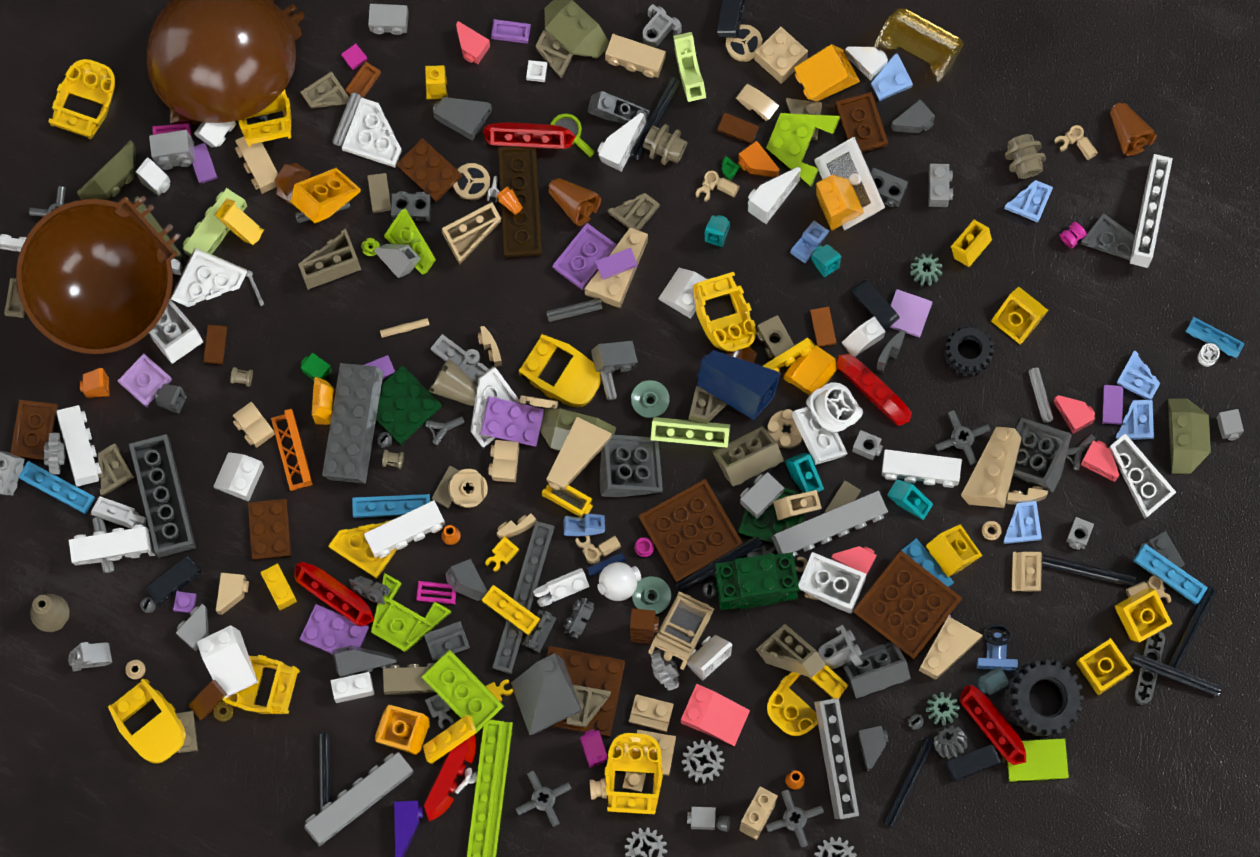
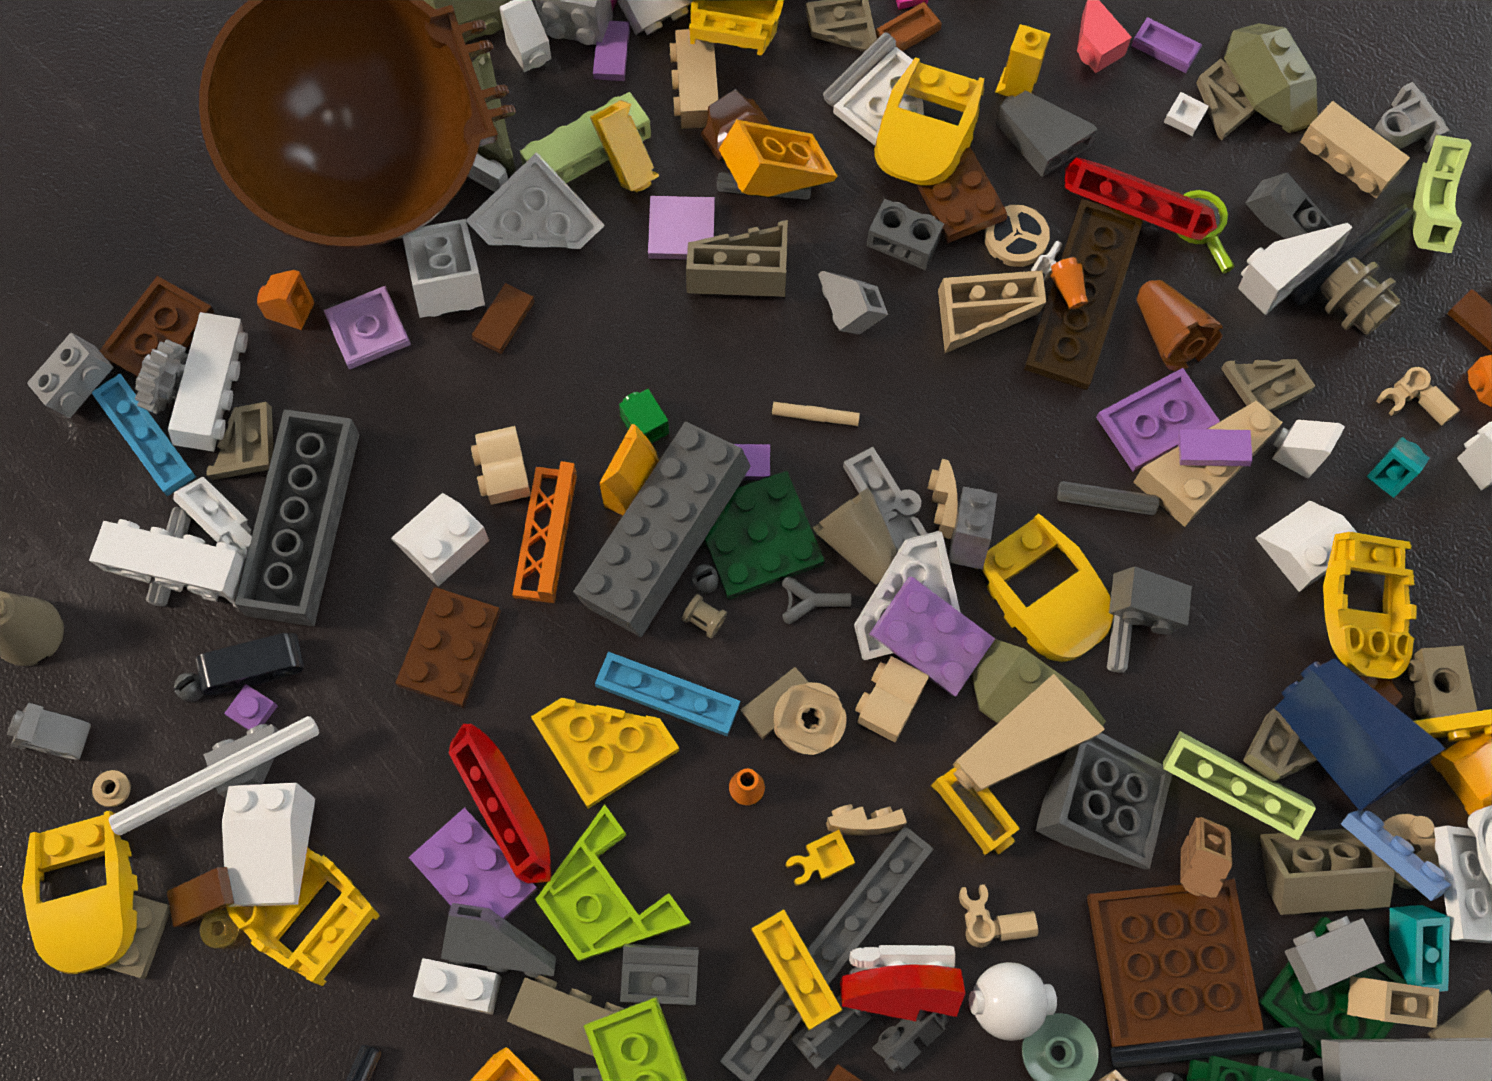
camera: 20 degrees right, 5 degrees down
(170, 397) = (391, 369): dark grey slope -> none
(187, 639) = (213, 776): none -> white axle
(230, 591) = (338, 720): tan slope -> none
(241, 376) = (519, 382): dark tan bush -> none
(249, 274) = (606, 235): light grey hinge -> none
(278, 587) = (415, 750): yellow brick -> none
(287, 252) = (676, 222): none -> lavender tile
(364, 588) = (556, 813): dark grey hinge -> none
(369, 242) = (810, 276): lime plate -> none
(379, 192) = (863, 195): dark tan tile -> none
(398, 155) = (921, 146): none -> yellow slope
(404, 232) = (881, 265): lime wing -> none
(405, 529) = (671, 743): white brick -> none
(439, 593) = (661, 884): dark pink tile -> none
(466, 580) = (740, 879): dark grey slope -> none
(510, 356) = (973, 527): none -> flat silver brick
(541, 402) = (991, 622): tan tile -> none
(565, 597) = (904, 990): none -> red slope
(586, 526) = (992, 873): medium blue slope -> none
(598, 567) = (995, 955): dark blue piece -> none
(644, 547) = (1078, 955): dark pink plate -> none
(653, 390) = (1196, 686): sand green dish -> none
(664, 240) = (1306, 445): none -> white slope
(685, 474) = (1205, 858): none -> medium nougat brick
(729, 168) = (1450, 377): green tile -> none
(776, 434) = (1397, 853): none -> medium blue plate

